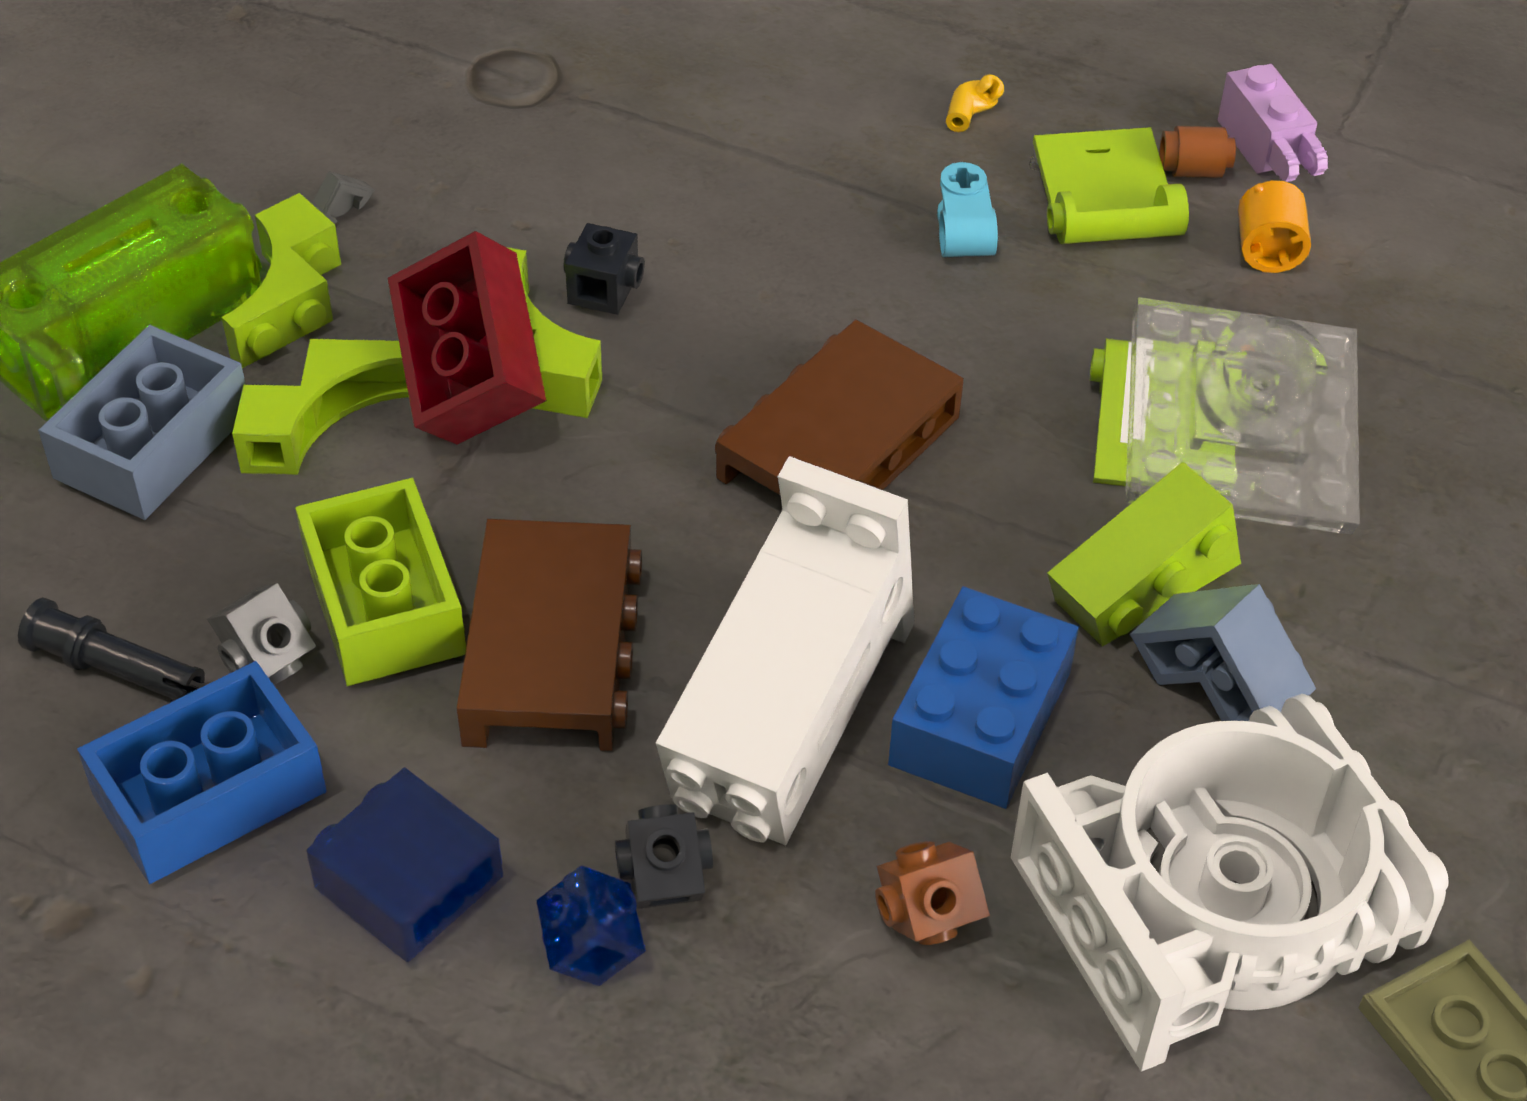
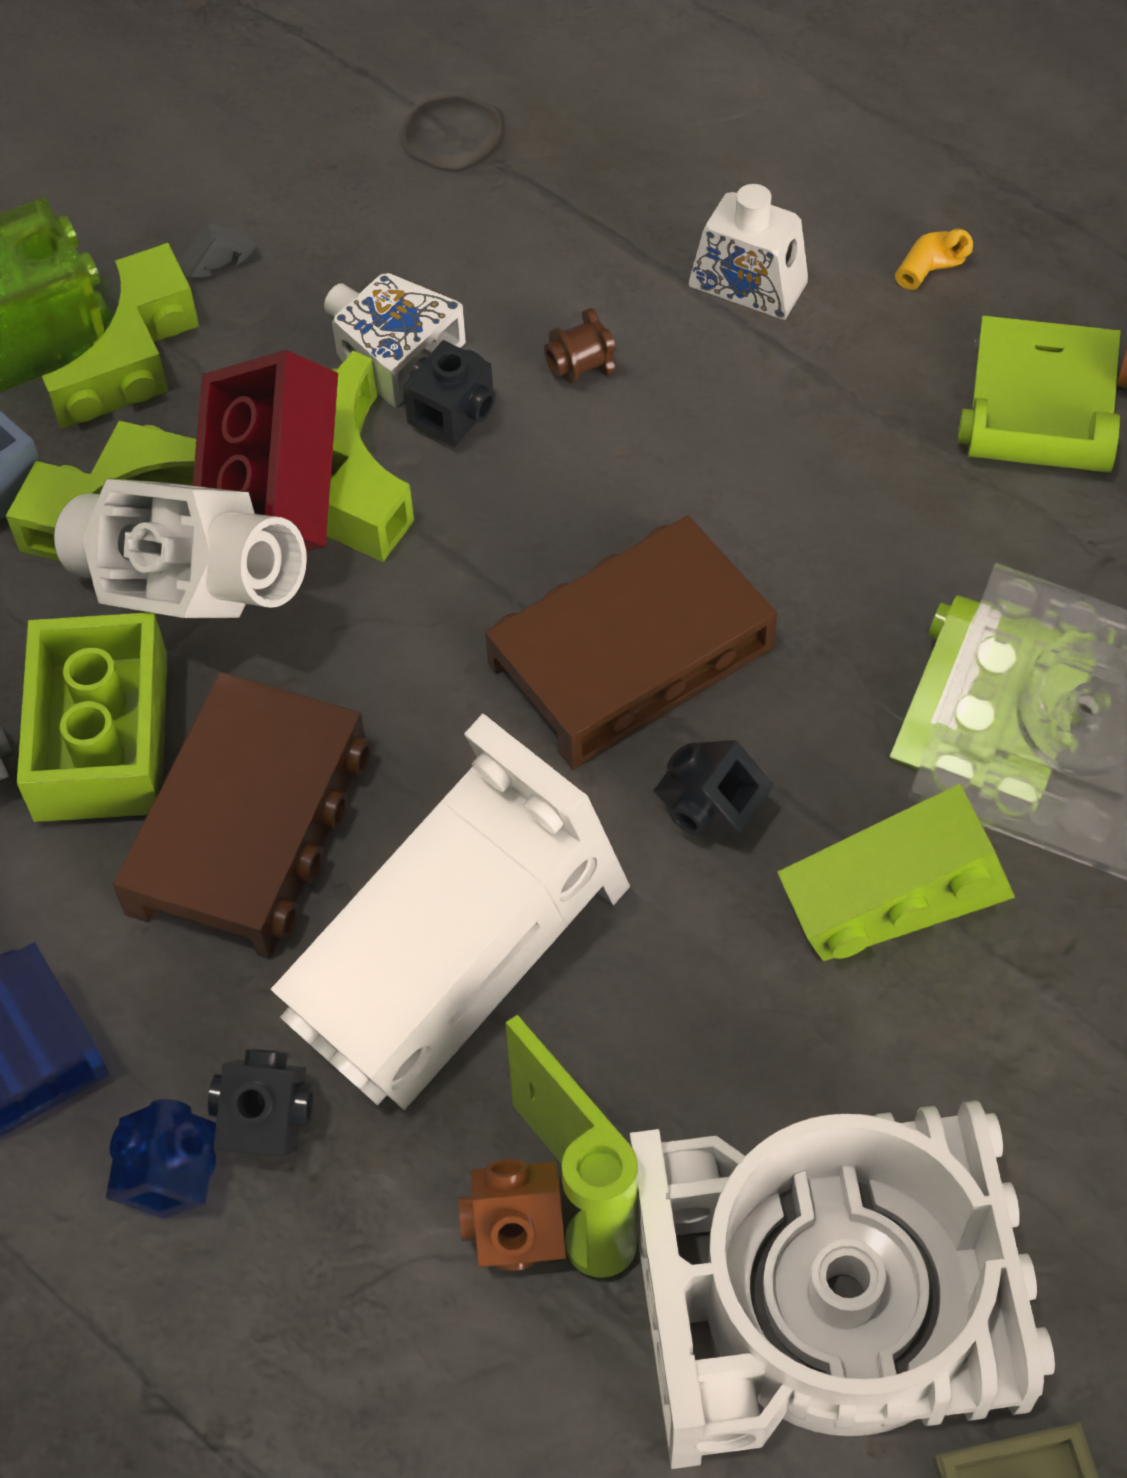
camera: 20 degrees right, 10 degrees up
(418, 418) = (179, 549): none -> white brick
(533, 221) = (393, 326): none -> white torso
(703, 217) = (580, 349): none -> reddish brown brick
(824, 117) = (752, 253): none -> white torso
(963, 523) = (713, 787): none -> black brick
(966, 212) = (866, 400): medium azure piece -> none
(969, 798) = (594, 1156): none -> lime door
(982, 697) = (659, 997): blue brick -> none
(1227, 644) = (941, 1016): brick -> none

